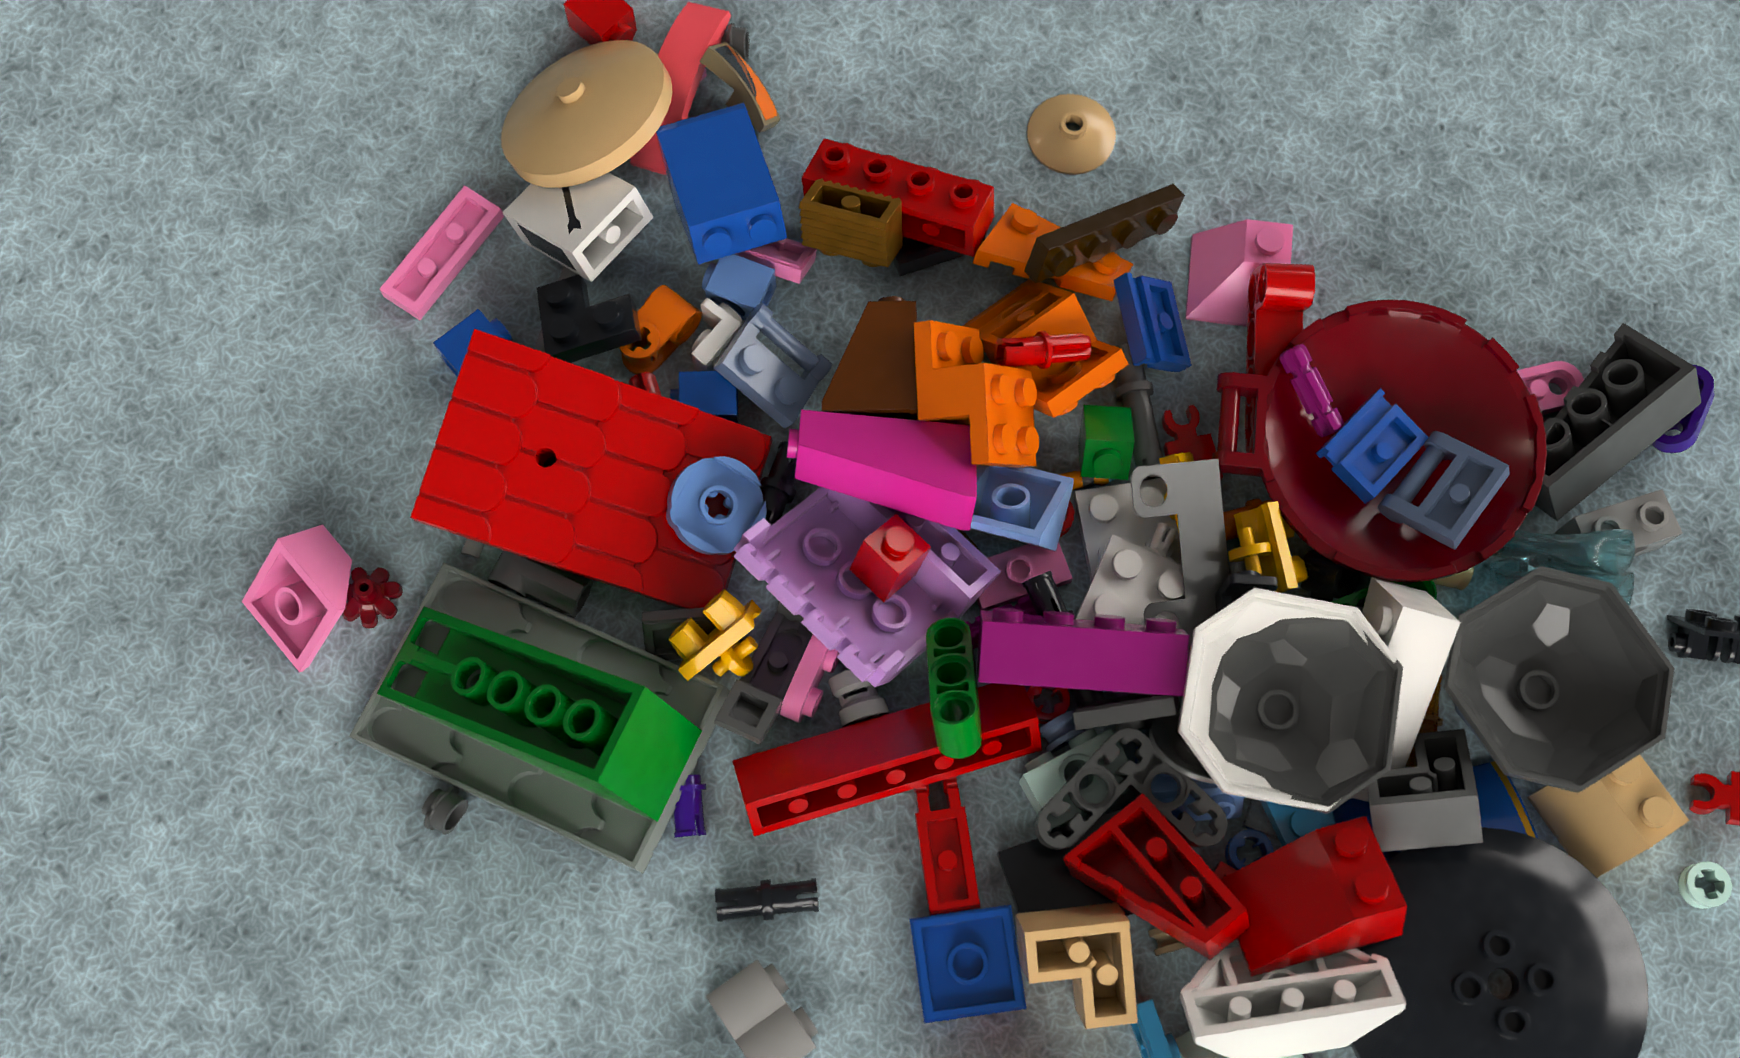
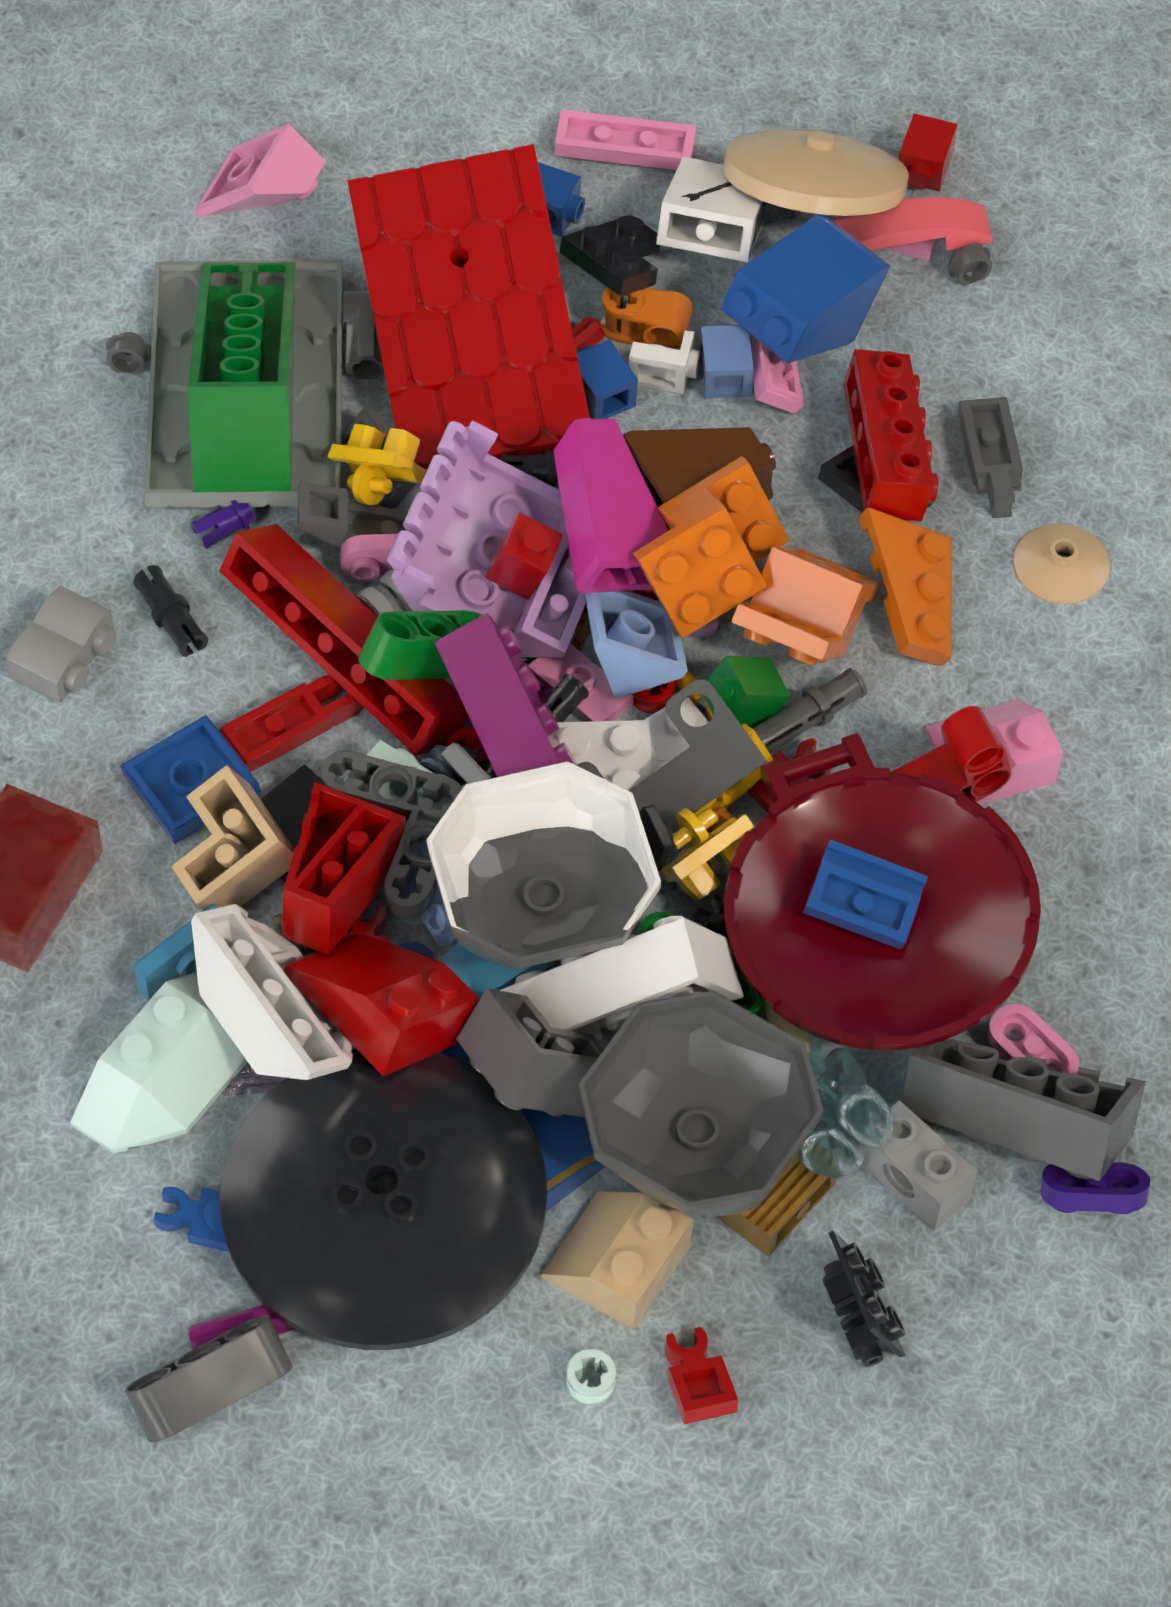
camera: 65 degrees right, 15 degrees down
(371, 596) = (286, 227): dark red plant -> none
(690, 515) = (516, 389): medium blue plate -> none
(747, 85) = (921, 286): dark tan slope -> none
(765, 376) = (648, 390): sand blue plate -> none
(851, 223) = (832, 403): pearl gold brick -> none
(941, 127) = (992, 451): none -> dark grey hinge
(1042, 350) = (789, 581): red axle -> none
(1104, 233) = (953, 602): dark brown plate -> none
(1152, 323) = (893, 688): blue plate -> none
(1311, 390) = (885, 810): magenta axle -> none
(1455, 498) = (851, 967): sand blue plate -> none

